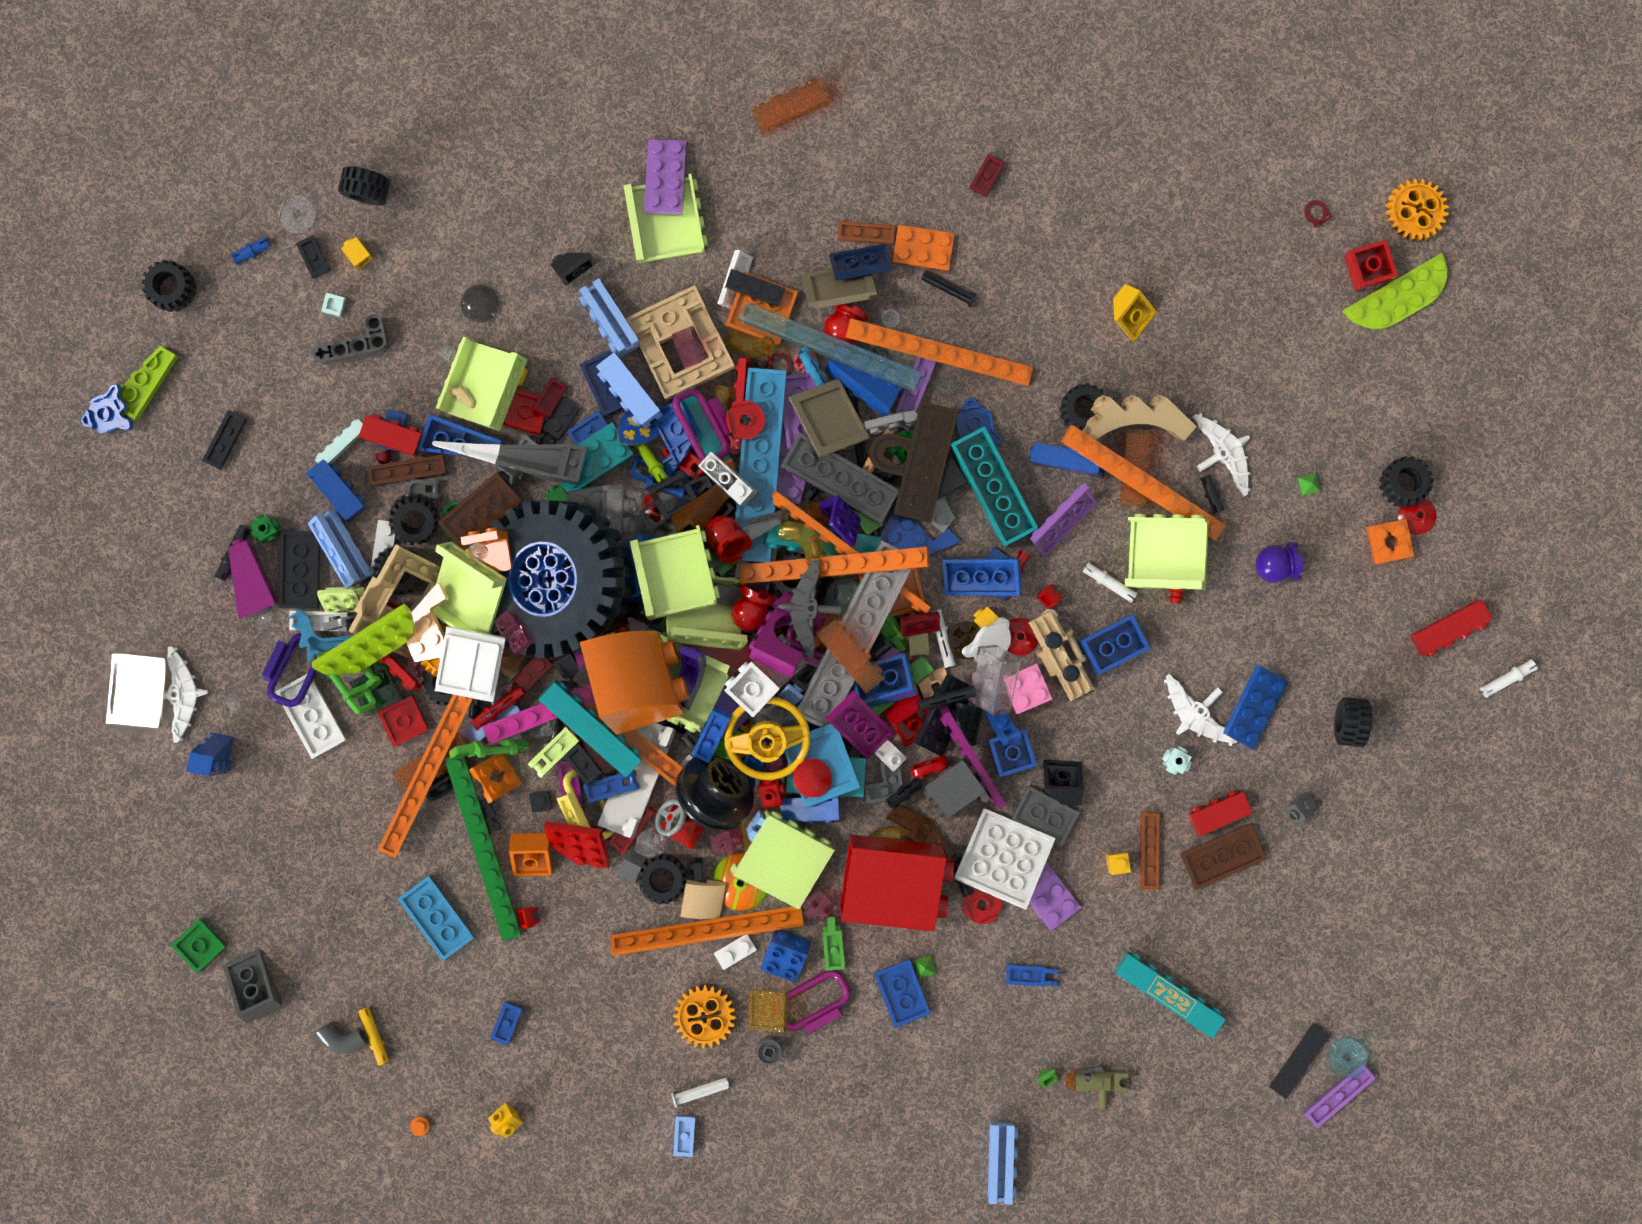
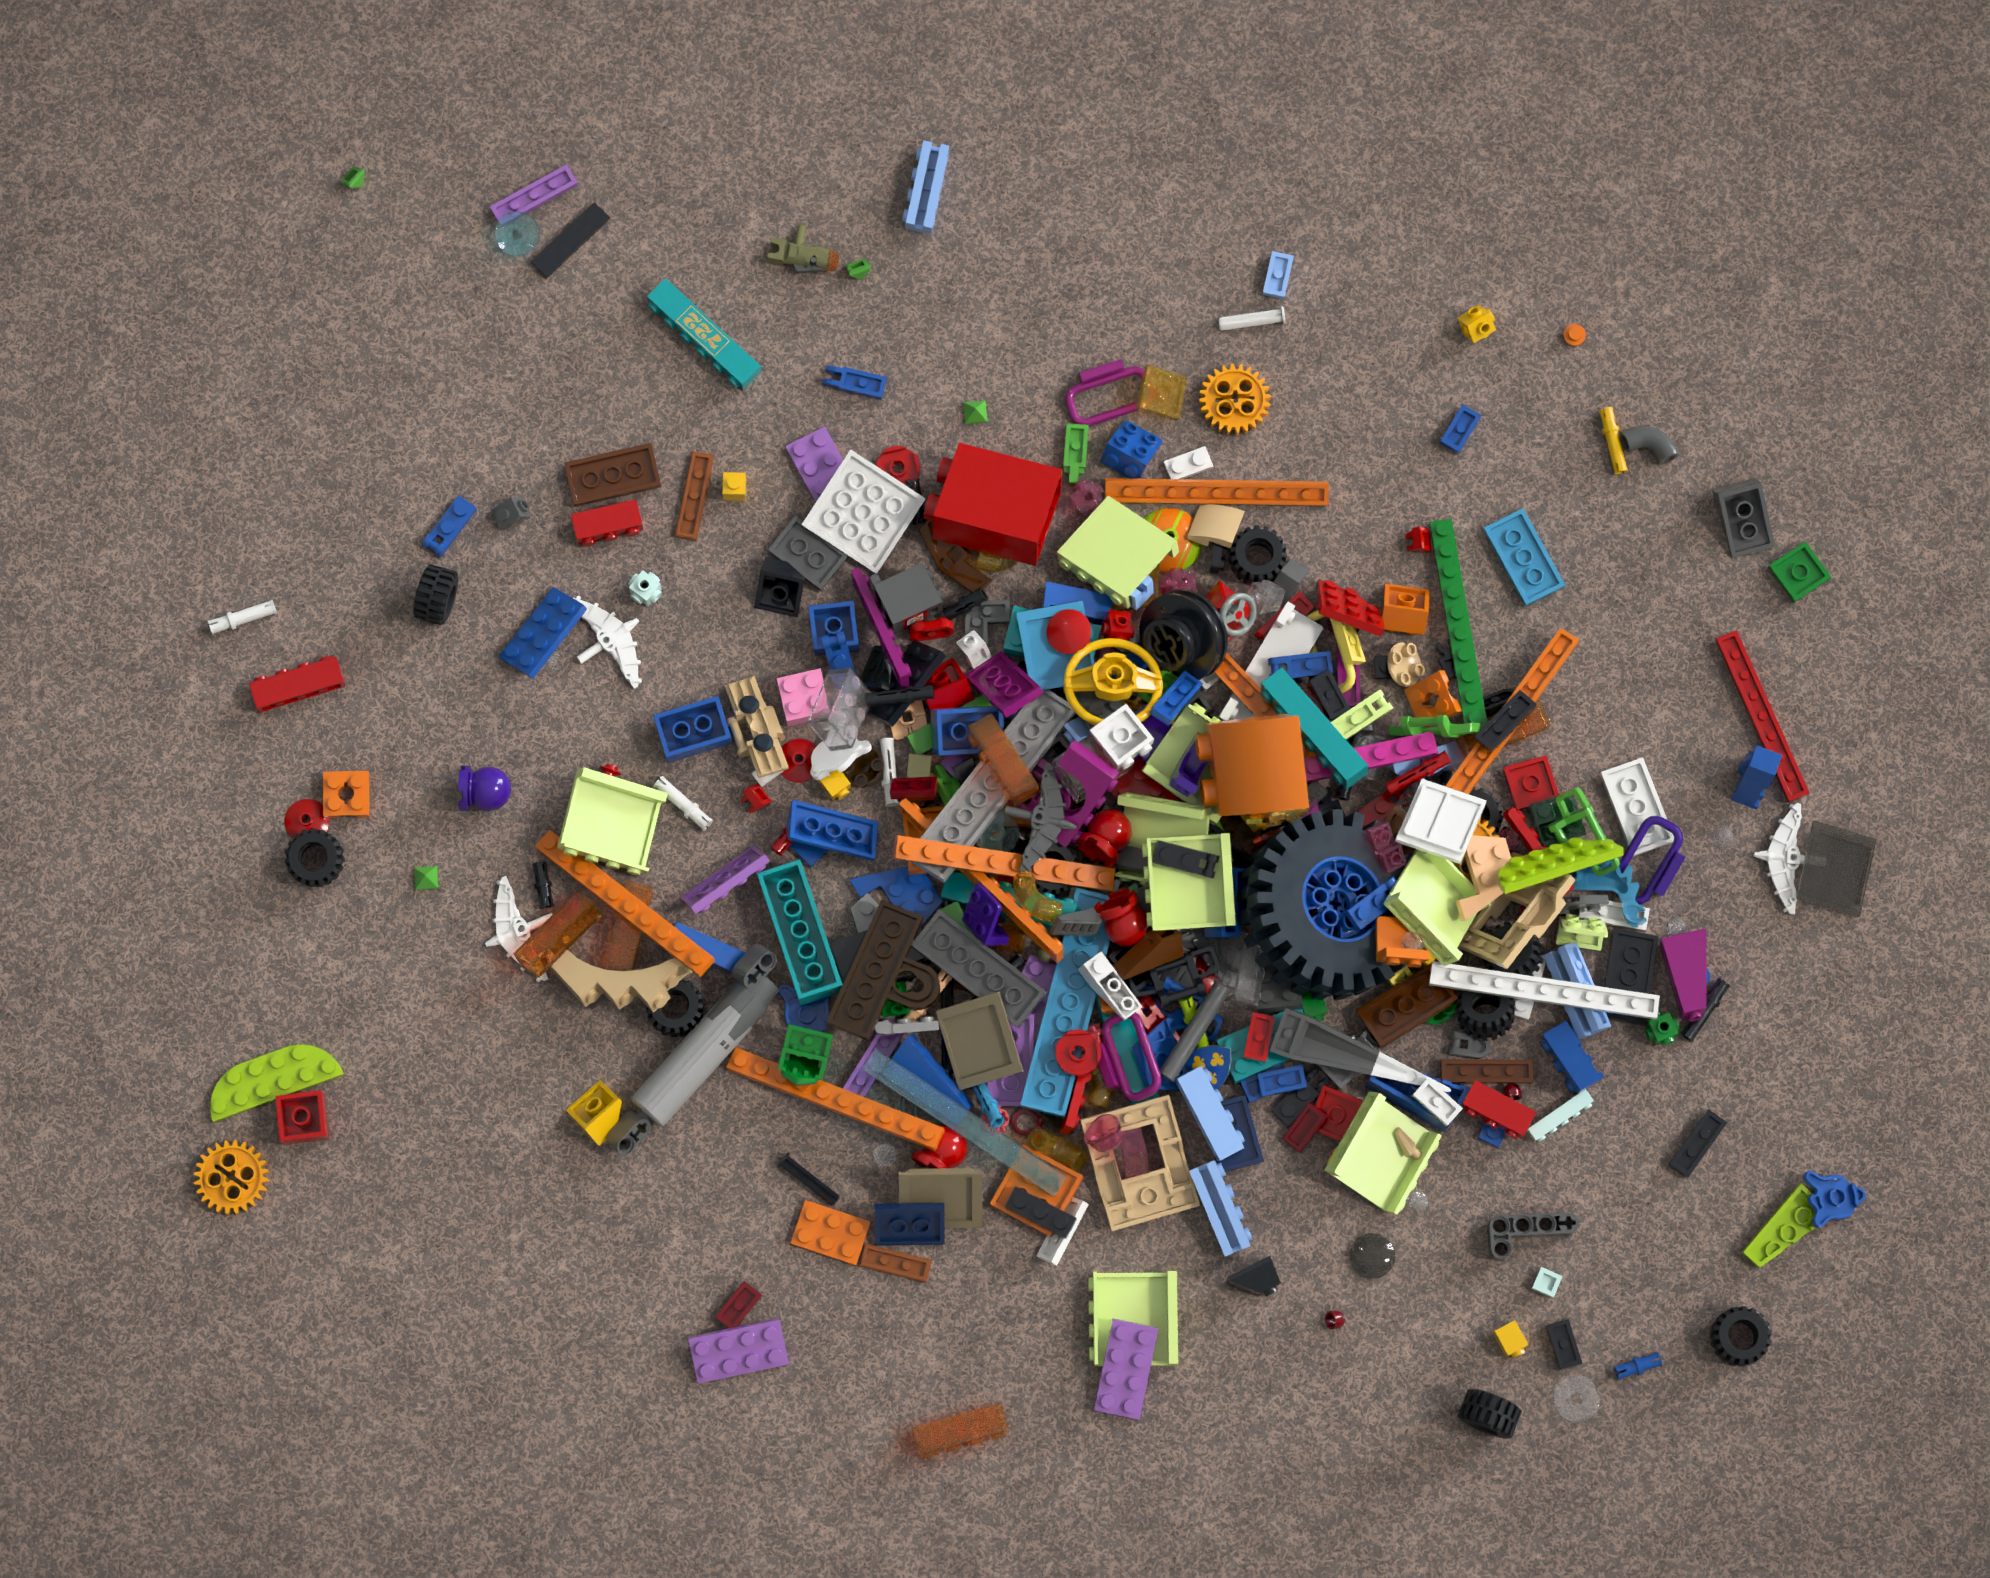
camera: 170 degrees left, 10 degrees down
(216, 816) = (1761, 714): none -> red plate
(362, 538) = (1544, 990): none -> white plate
(428, 763) = (1505, 721): none -> black plate
(441, 429) = (1437, 1102): none -> white plate
(499, 245) = (1337, 1316): none -> dark red hinge
(518, 578) = (1369, 906): none -> blue plate
(524, 805) = (1405, 664): none -> tan dish
(574, 430) = (1281, 1081): none -> blue plate
(597, 458) = (1259, 1037): none -> red plate
(651, 453) = (1194, 1031): none -> dark grey piece
(681, 590) = (1184, 858): none -> black plate
(713, 354) = (1104, 1133): none -> clear pink helmet
(769, 1050) = (1167, 349): dark grey wheel -> none
(902, 993) = (1006, 387): blue plate -> none
(971, 381) = (804, 1055): none -> green piece
(980, 139) = (738, 1350): none -> medium lavender plate
(1058, 373) = (699, 1051): none -> piece
(1193, 450) = (557, 934): none -> clear orange brick
(1326, 216) = (340, 1189): dark red piece -> none
(1351, 787) = (449, 526): none -> blue plate
(1497, 1084) = (353, 178): none -> bright green slope

